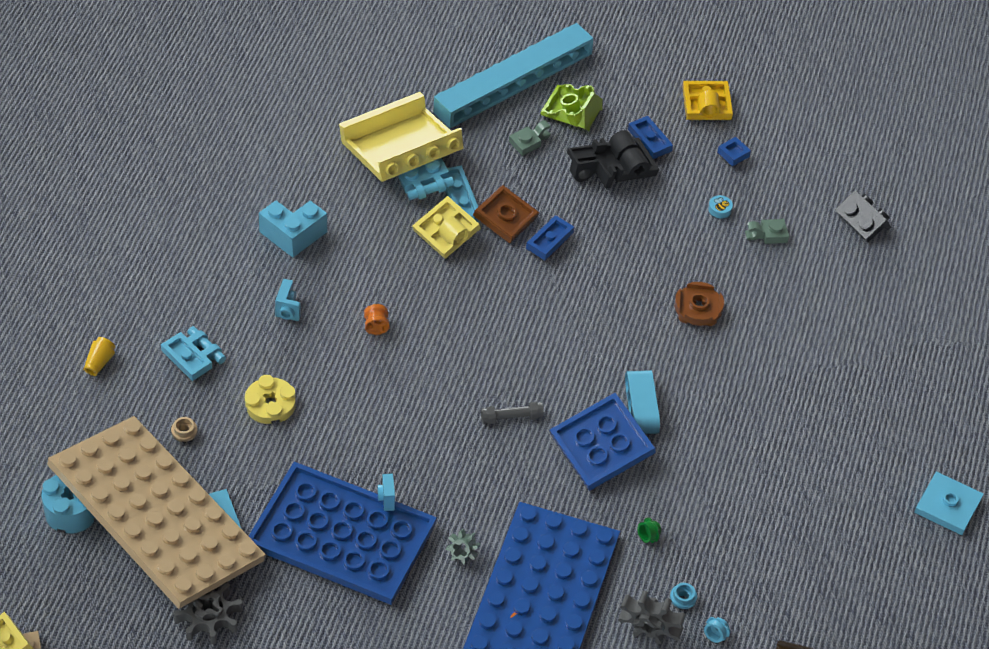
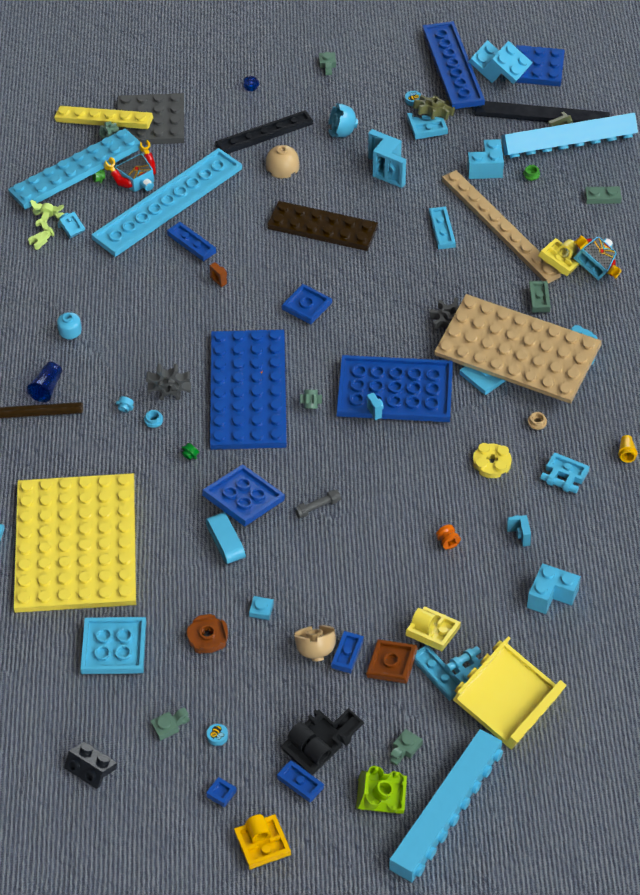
camera: 165 degrees right, 0 degrees up
(65, 606) = (539, 296): none -> sand green plate
(583, 245) = (315, 643): none -> tan cylinder
(626, 317) = (261, 608): none -> medium azure plate
(810, 323) = (113, 645): none -> medium azure plate
(827, 466) = (75, 543): none -> light yellow plate

